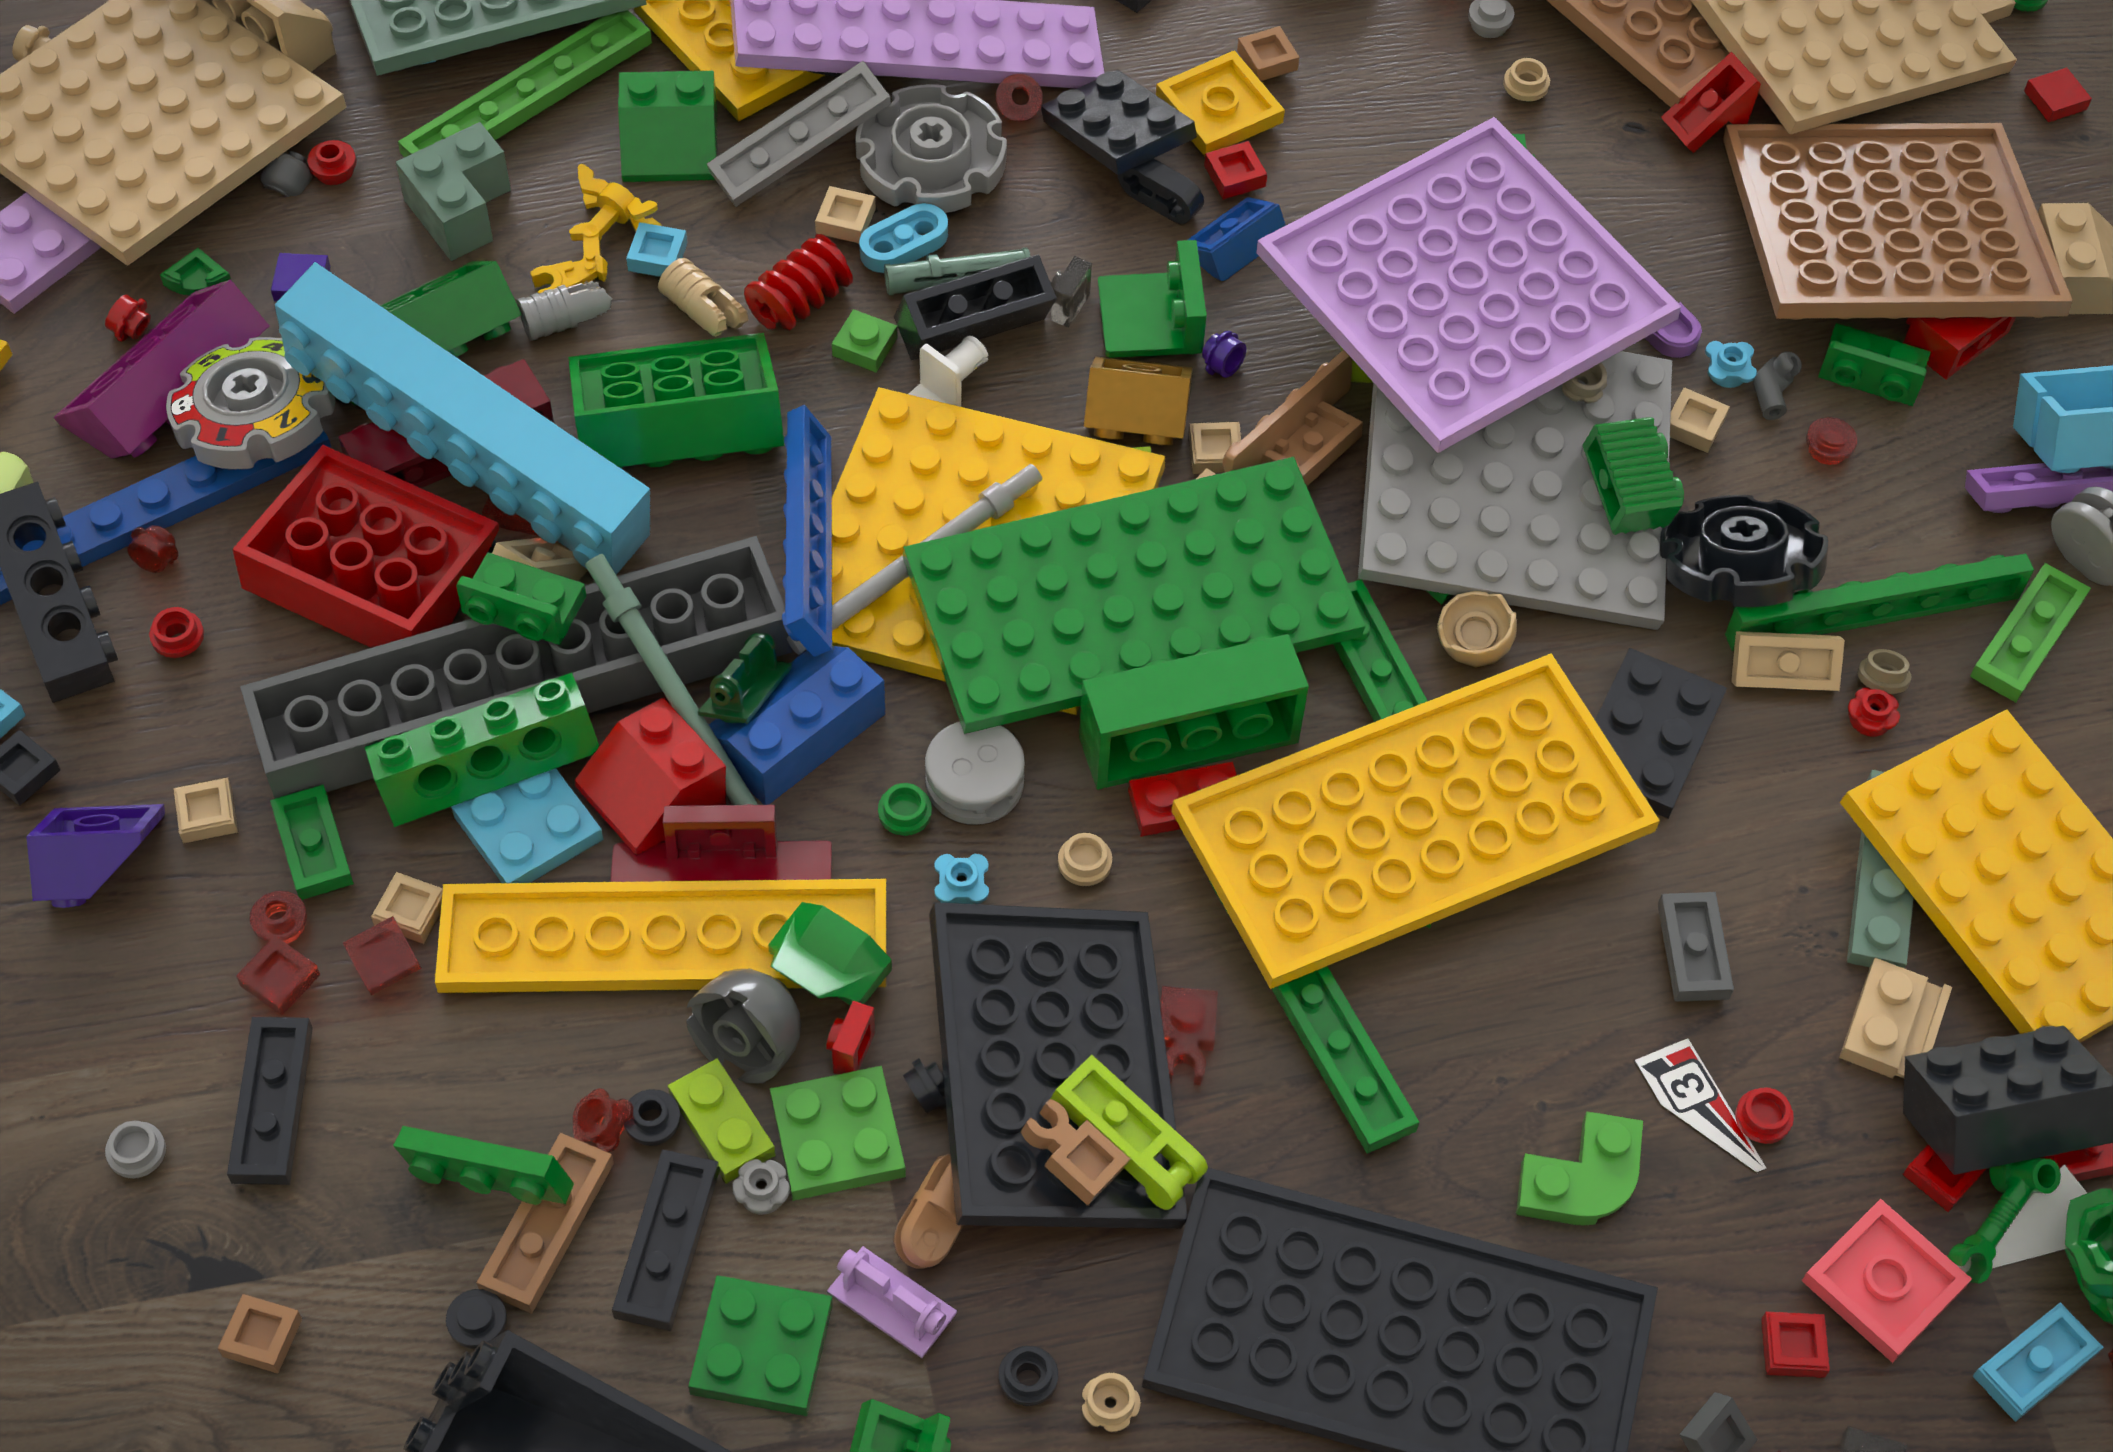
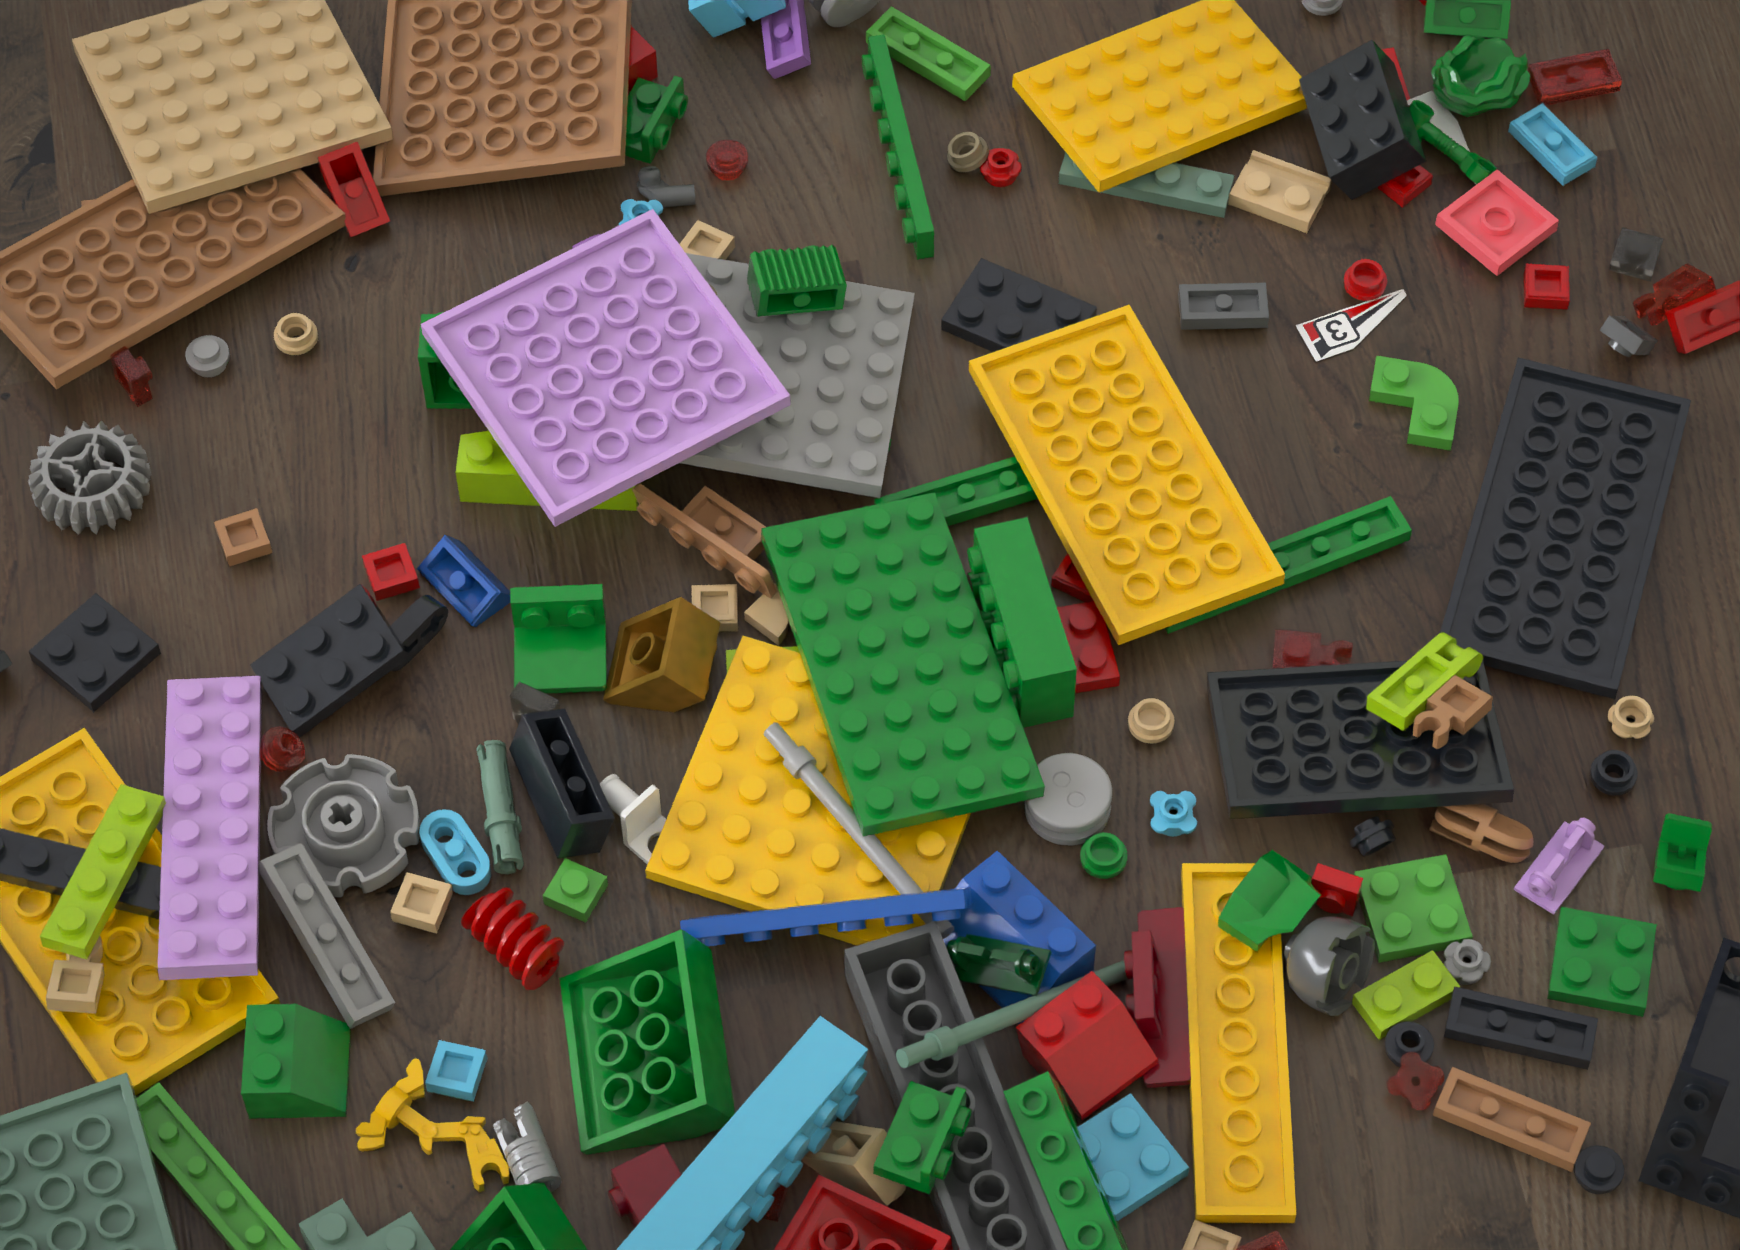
camera: 85 degrees left, 0 degrees up
(483, 1166) = (1479, 1157): green plate -> none
(701, 297) = (522, 1028): tan hinge -> none
(1223, 102) = (300, 578): yellow plate -> none
(1223, 354) = (616, 592): dark purple plate -> none
(1477, 628) = (927, 418): tan hair -> none
(1744, 551) = (864, 215): black piece -> none
(1787, 661) = (957, 213): tan plate -> none

